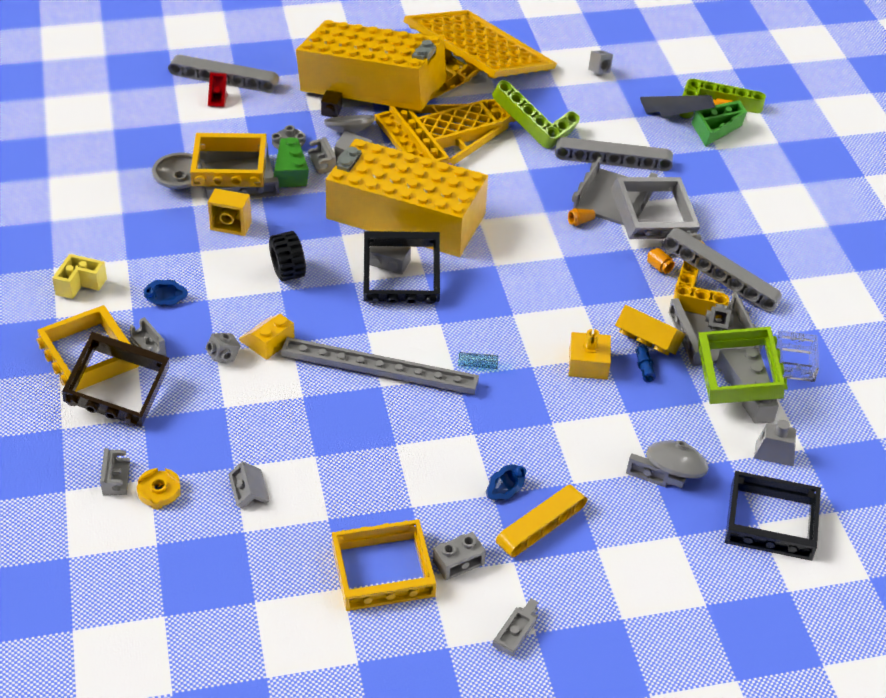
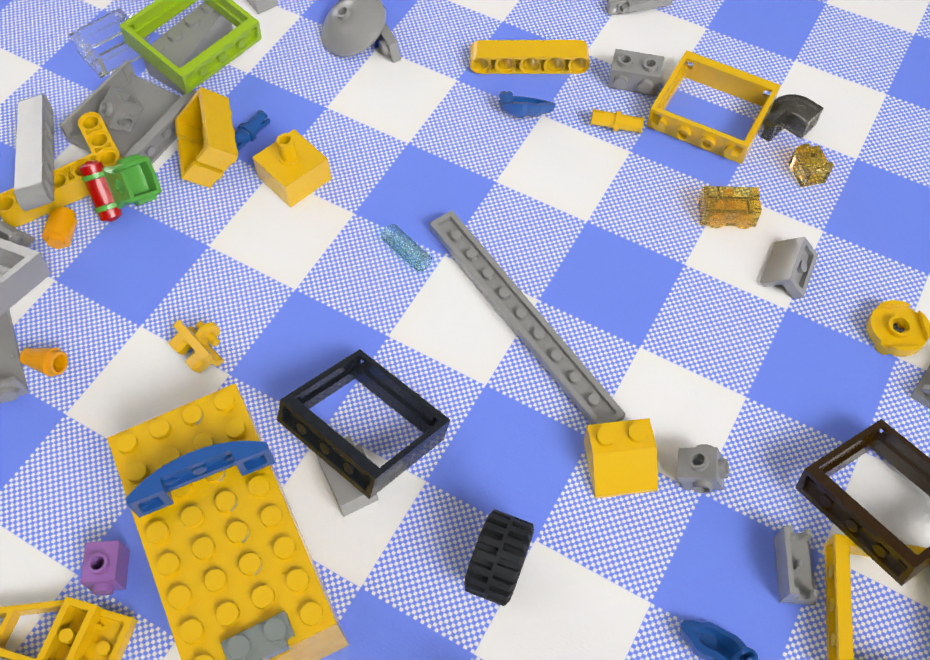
camera: 135 degrees left, 15 degrees up
(282, 562) = (808, 160): none -> clear yellow brick
(314, 496) = (729, 206): none -> clear yellow brick
(322, 595) = (791, 113): none -> clear smoke brick
(421, 186) = (155, 490): none -> blue slope
(438, 512) = (617, 121): none -> yellow pin
(521, 259) = (200, 342): none -> yellow hips
(656, 285) = (119, 185): none -> bright green piece

